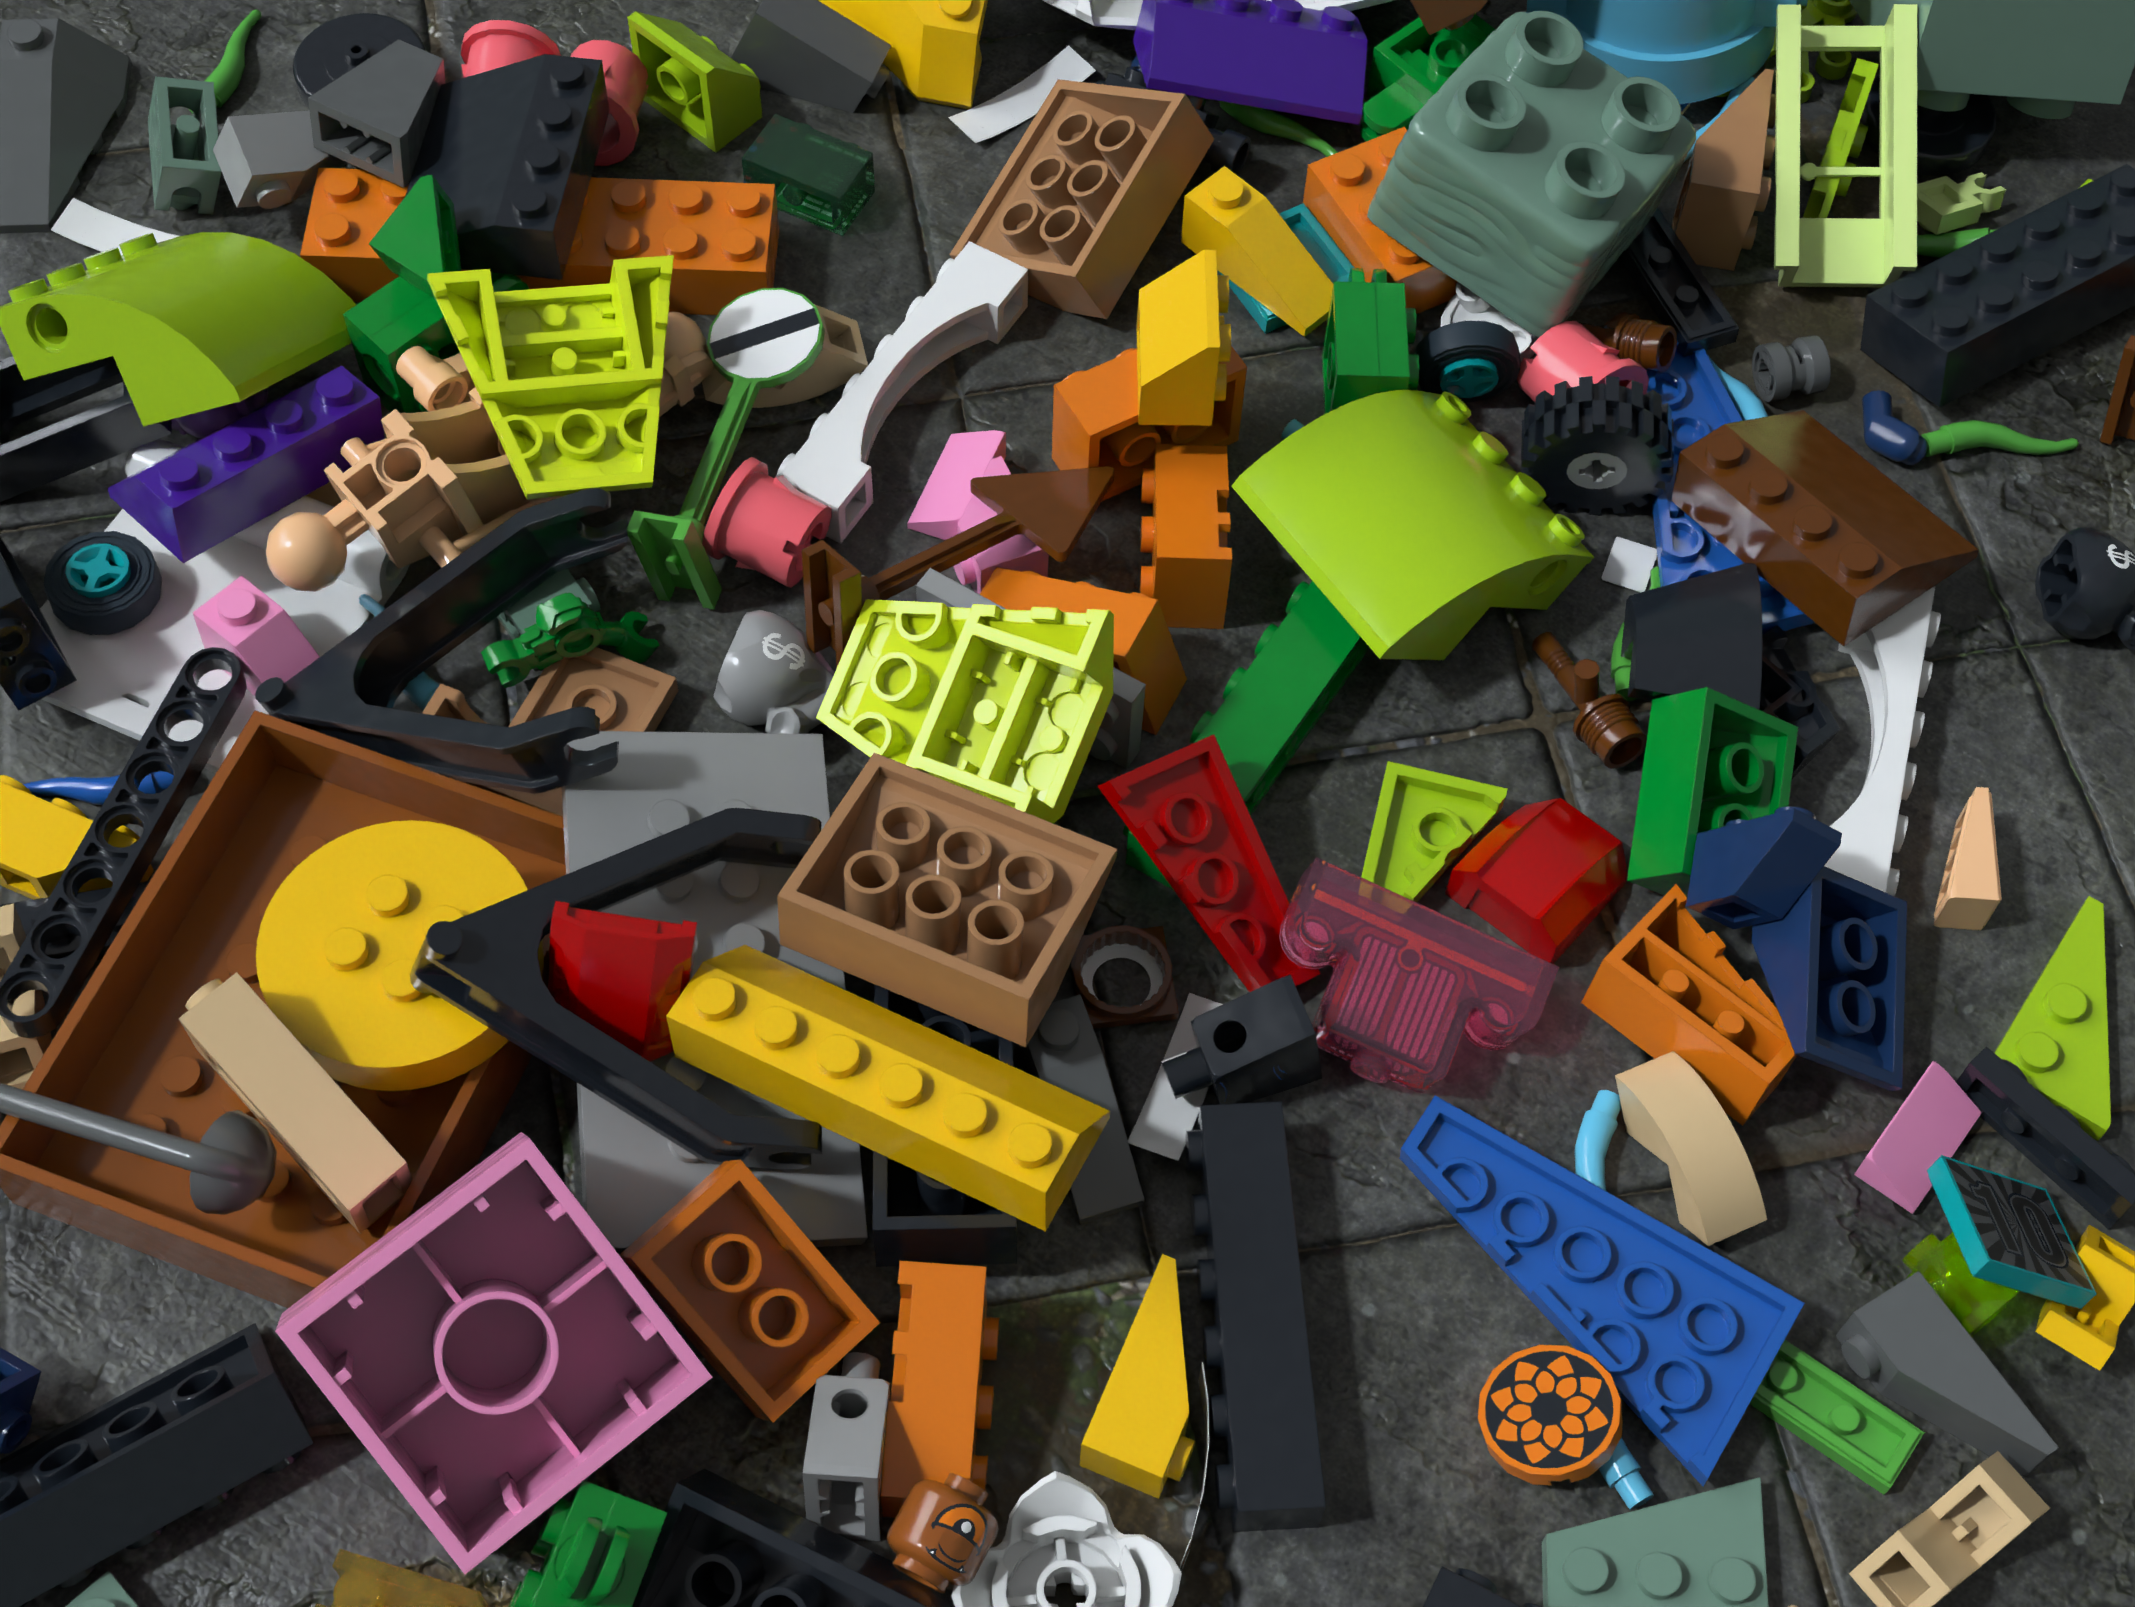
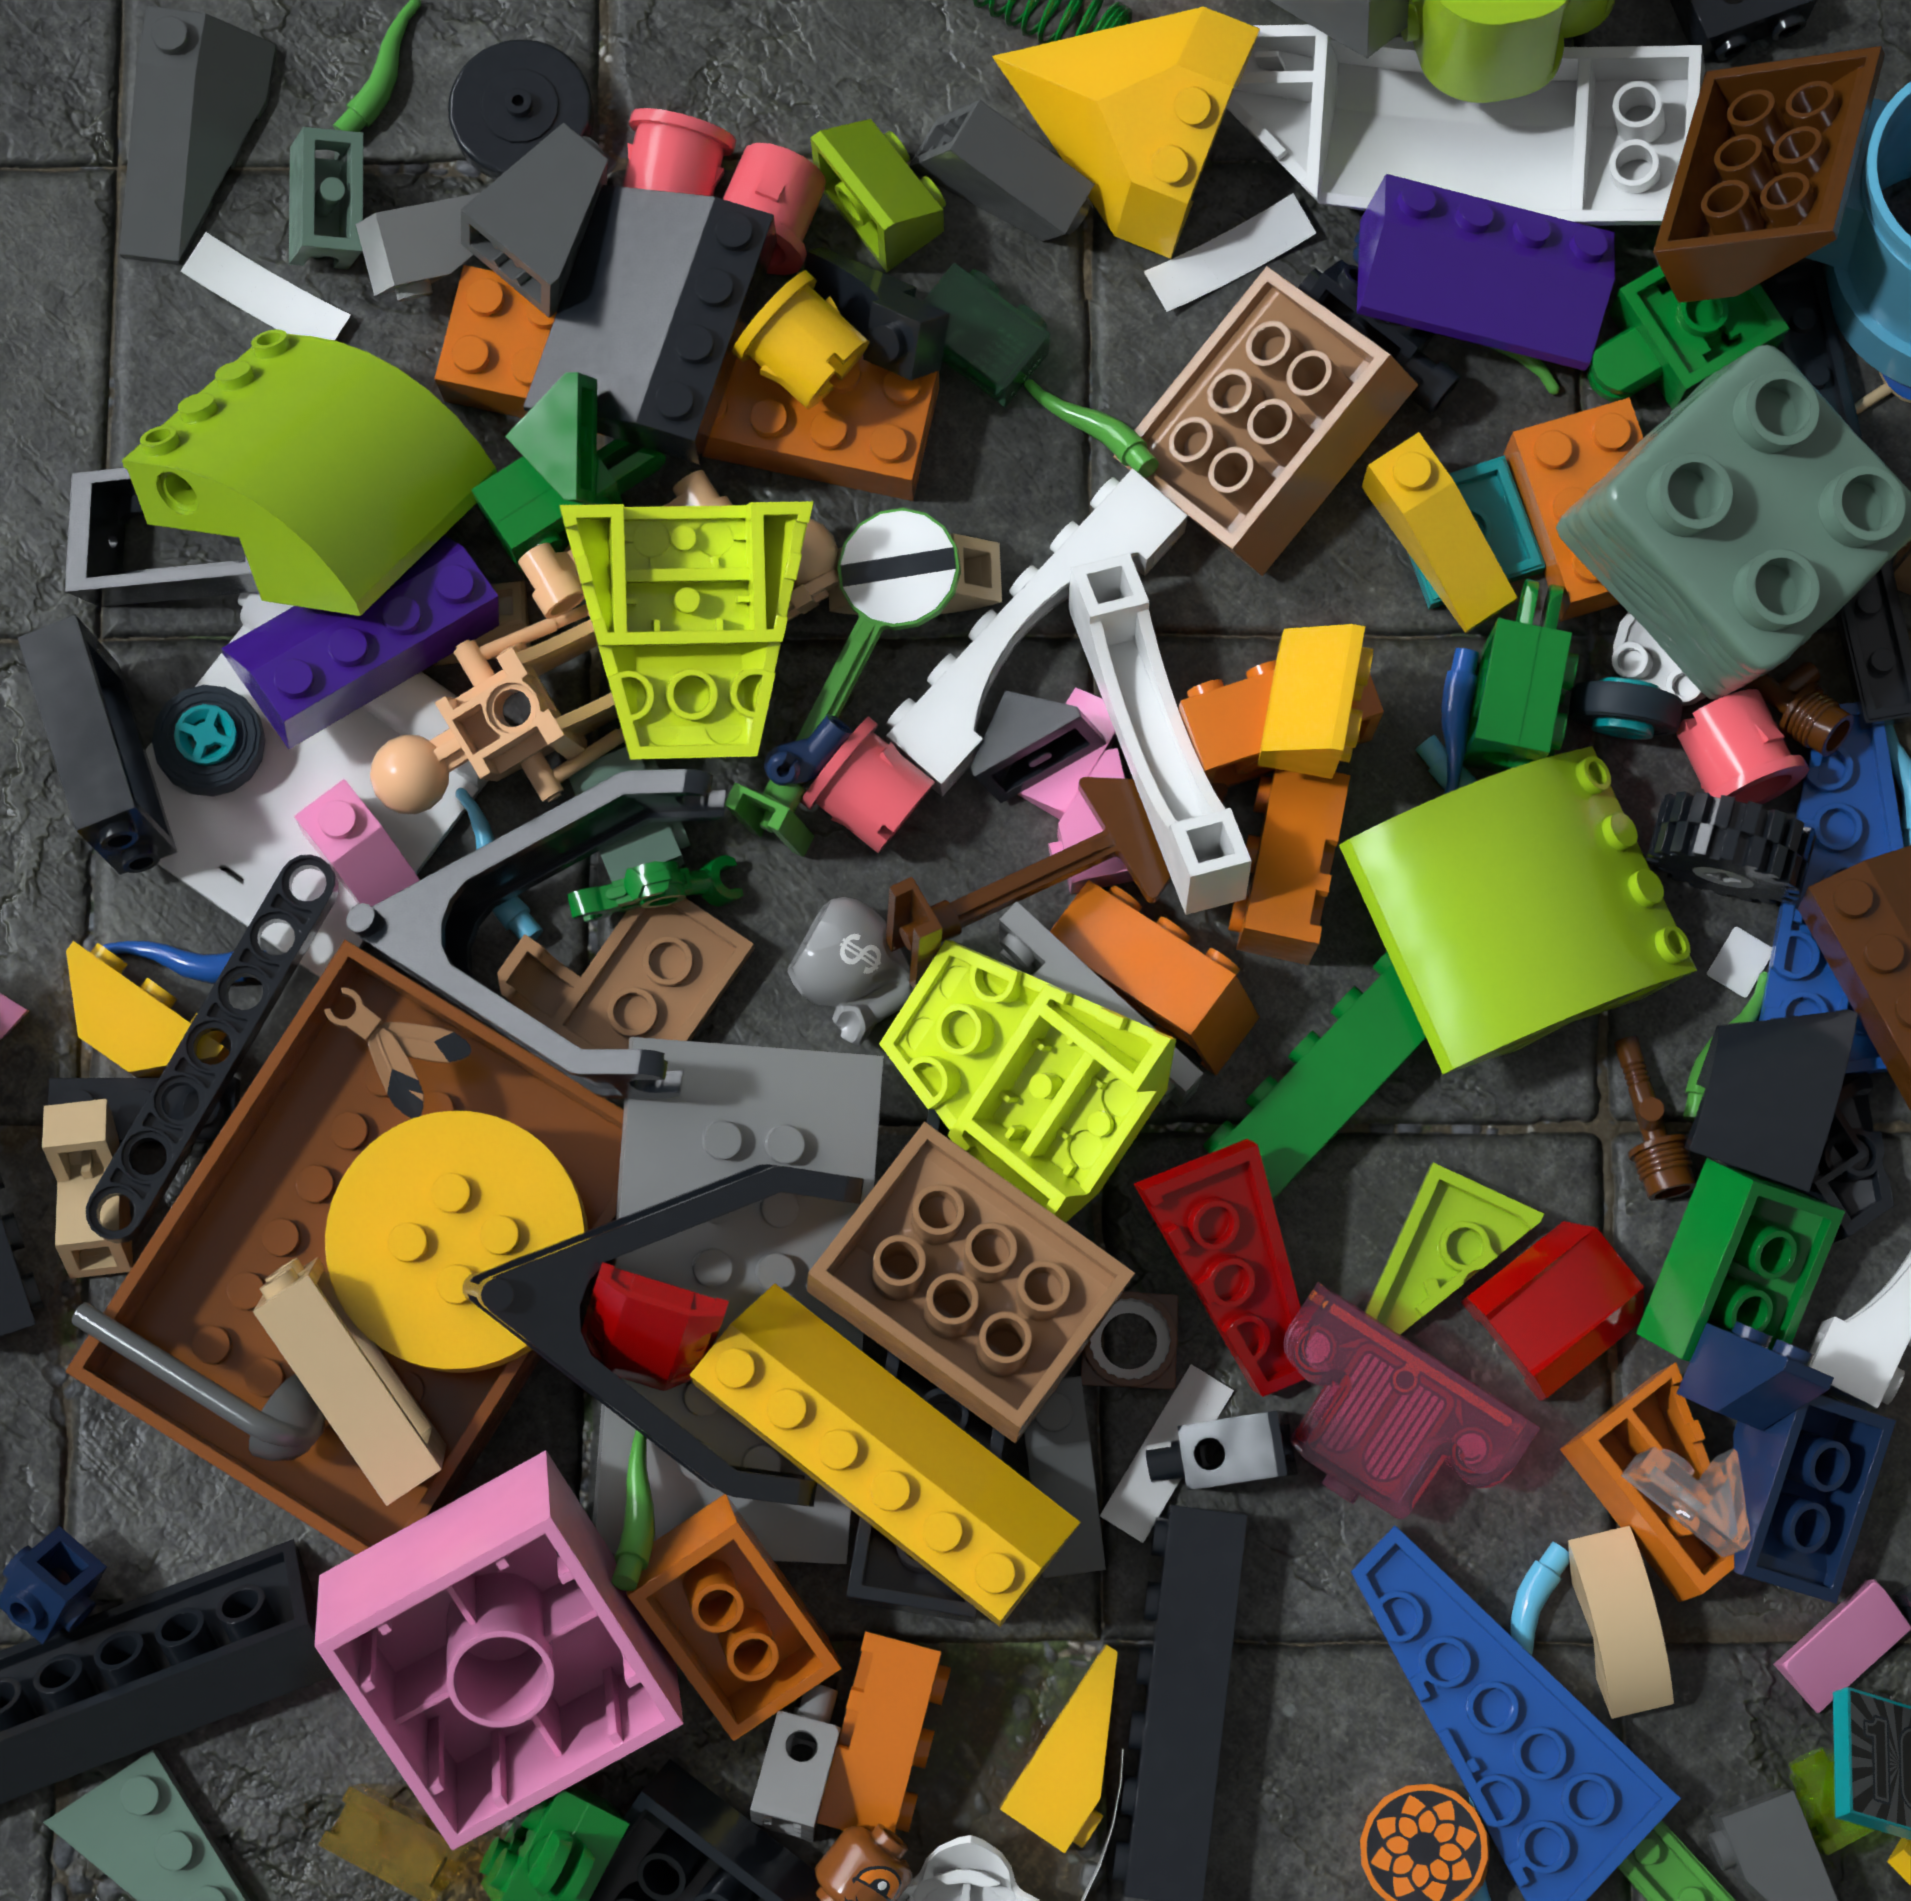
camera: 15 degrees right, 20 degrees up
(318, 789) = (393, 1044): none -> medium nougat piece
(634, 1194) = (639, 1520): none -> bright green animal
(641, 155) = (801, 341): none -> yellow piece
(699, 491) = (806, 758): none -> dark blue arm
(709, 152) = (902, 330): none -> black slope
(921, 467) = (1031, 742): none -> black slope
(938, 229) = (1106, 429): none -> bright green animal
(1096, 486) = (1187, 817): none -> white arch
(1310, 384) = (1456, 711): none -> blue animal
(1745, 993) = (1707, 1507): none -> clear slope

